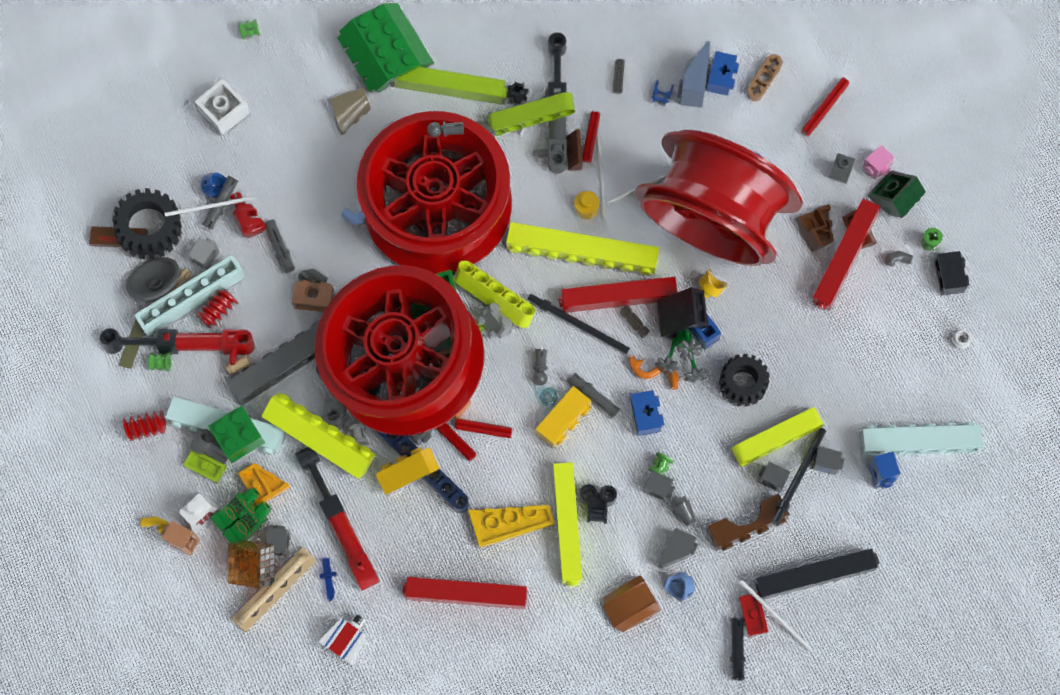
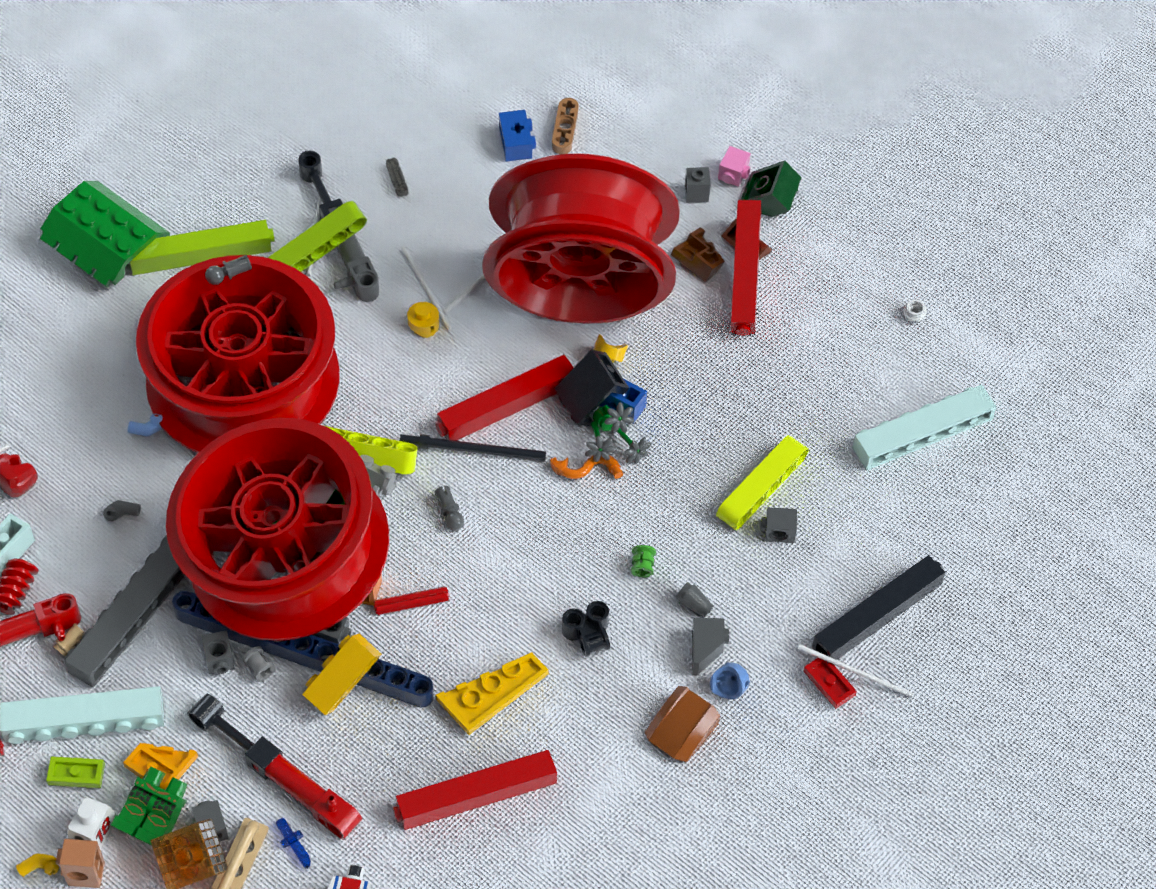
camera: 30 degrees left, 15 degrees down
(206, 443) = (68, 741): dark grey piece -> none
(236, 434) = (105, 710): green brick -> none
(286, 263) = (70, 496): dark grey pin -> none
(305, 288) = (126, 540): nougat brick -> none
(318, 435) = (210, 676): neon yellow brick -> none
(349, 108) = (87, 312): dark tan slope -> none
(457, 441) = (382, 626): red axle -> none
(517, 98) = (285, 230): black gear -> none
(544, 400) = (477, 531): clear light blue bush -> none
(564, 417) = (504, 552): yellow brick -> none
(567, 524) = (564, 665): neon yellow brick -> none
(574, 151) = (384, 268): copper slope -> none
(582, 248) = (440, 365): neon yellow brick -> none
(591, 136) = (394, 249): red axle -> none
(595, 396) = (528, 516): dark grey pin -> none
(634, 321) = (538, 422): clear smoke axle -> none
(646, 401) = (599, 511): blue brick -> none
(655, 92) = (463, 177): blue piece -> none
(659, 486) = (652, 584): dark grey brick -> none
(692, 87) = (491, 148): sand blue slope -> none
(725, 533) = (754, 605): reddish brown arch -> none
(737, 649) = (835, 735): black pin -> none
(750, 366) = (698, 419): black tyre -> none
(783, 505) = (808, 544): black bar -> none
(825, 106) = (647, 132): red axle -> none
(828, 460) = (832, 485): dark grey brick -> none
(884, 470) = (900, 469): blue brick -> none
(896, 256) = (804, 252): dark grey arm -> none
(929, 233) = (826, 221): bright green bush -> none
(951, 273) = (869, 248): black brick -> none

